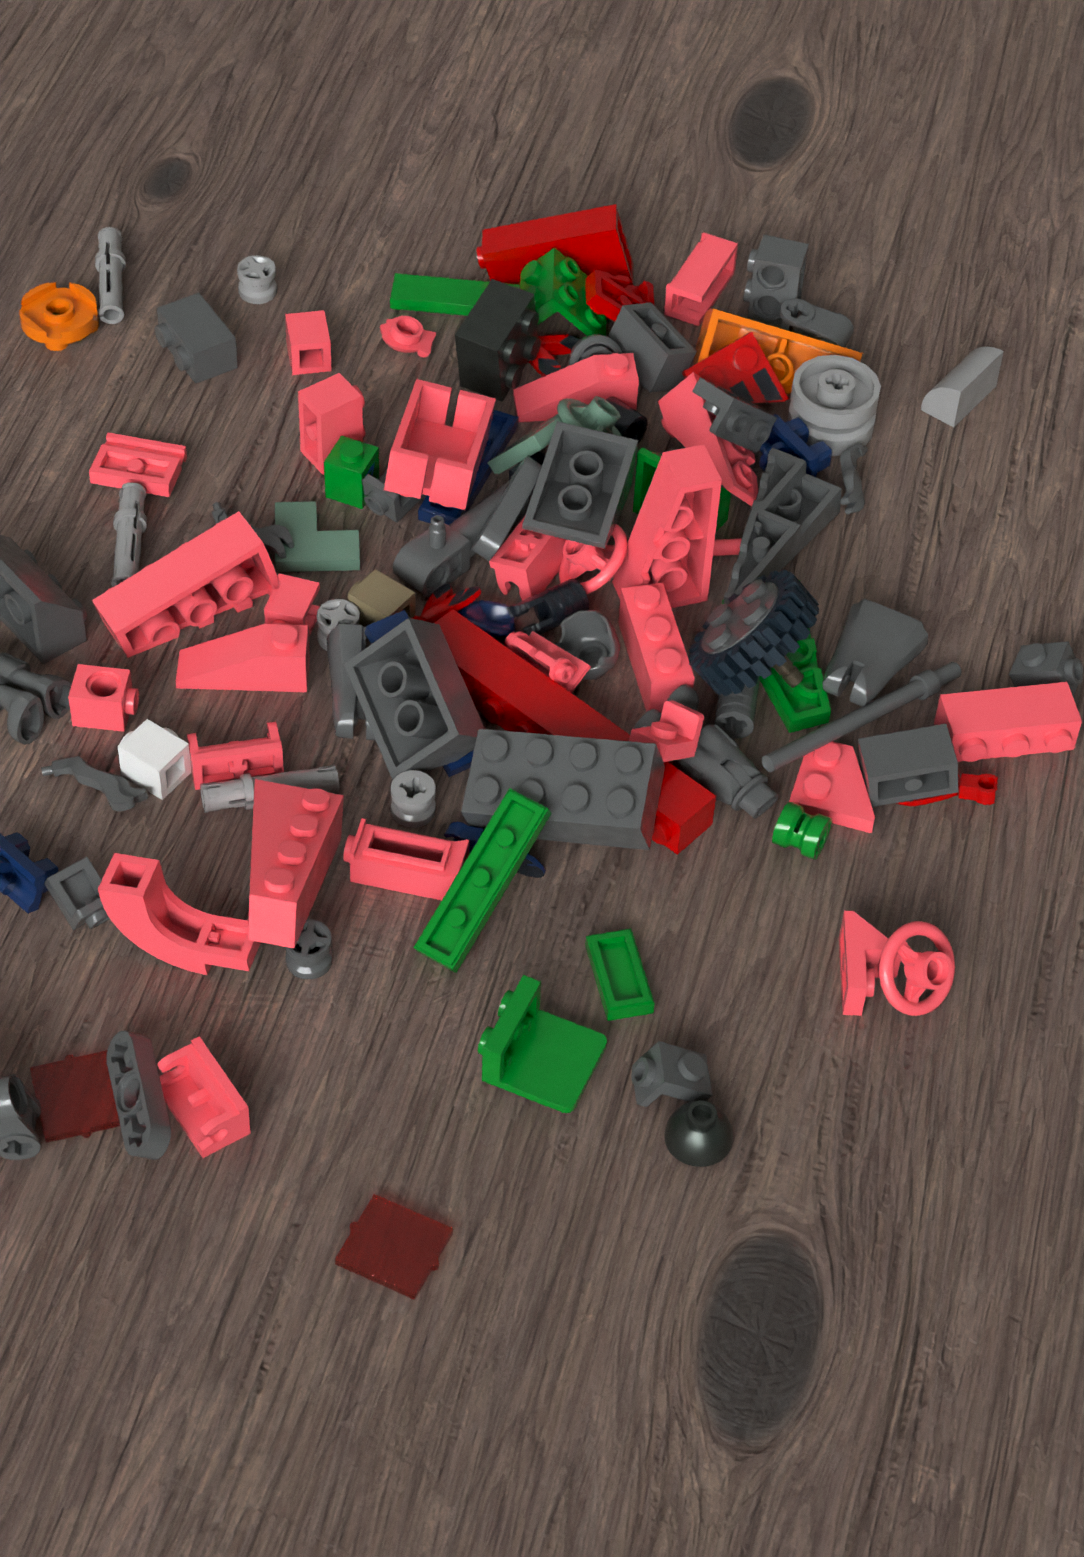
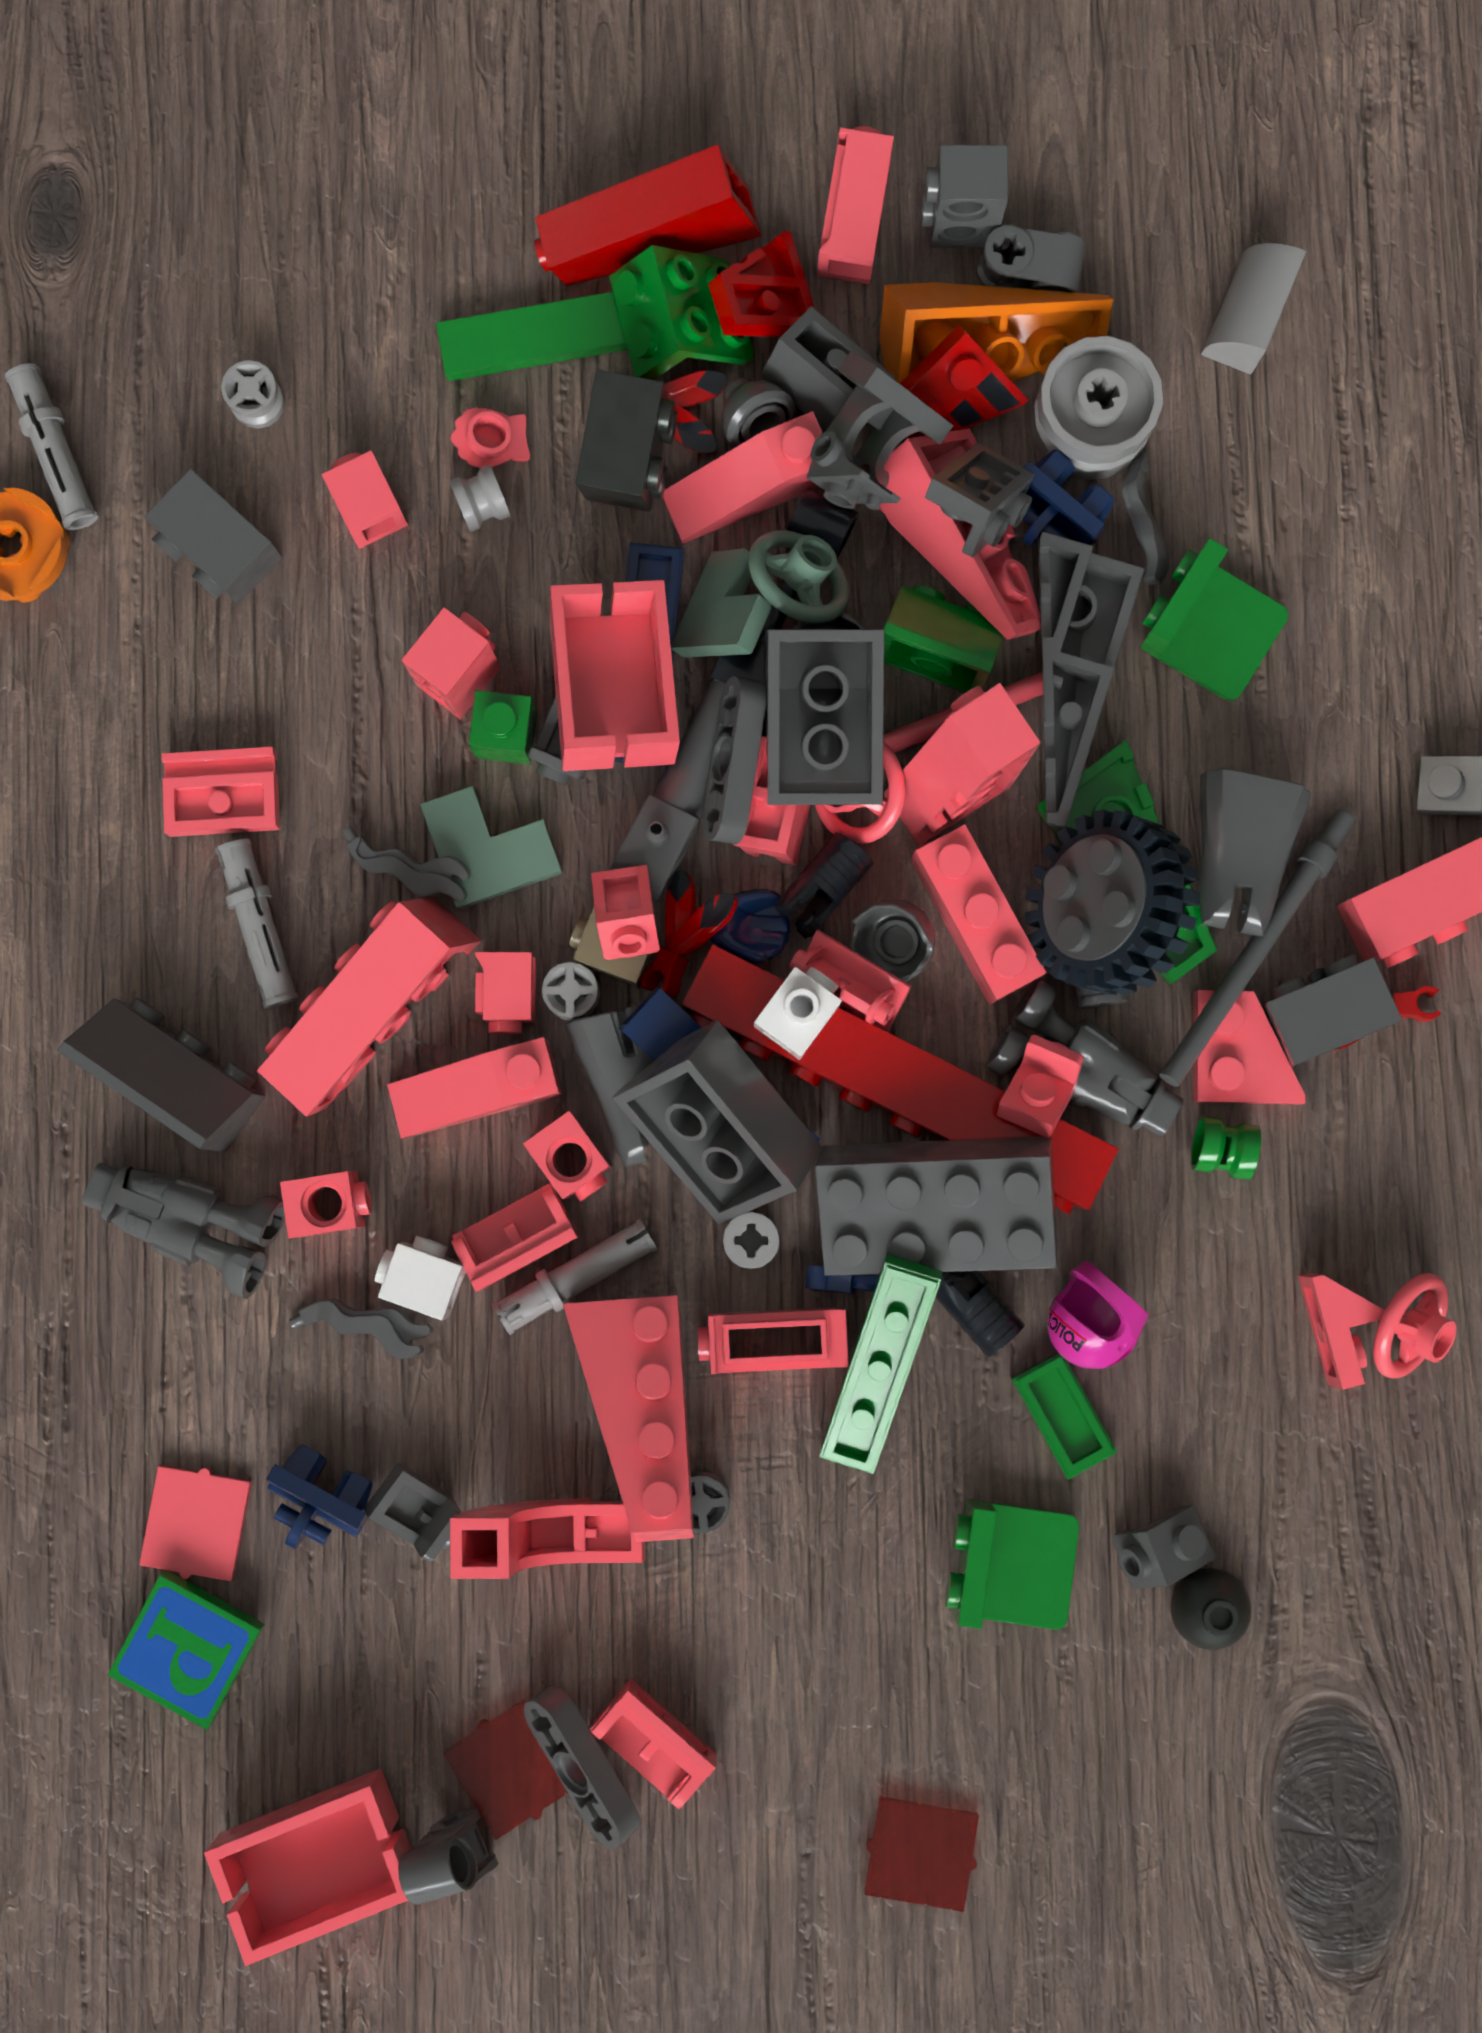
camera: 15 degrees left, 35 degrees up
(296, 712) = (547, 1144): none -> coral brick
(387, 359) = (480, 498): none -> light grey wheel
(395, 572) = (625, 912): none -> coral bracket
(499, 647) = (799, 1010): none -> white brick
(572, 880) = (978, 1310): none -> black hinge
(658, 907) = (1094, 1320): none -> dark pink helmet
(682, 349) = (892, 413): none -> dark grey tile
(879, 536) = (1213, 624): none -> green bracket

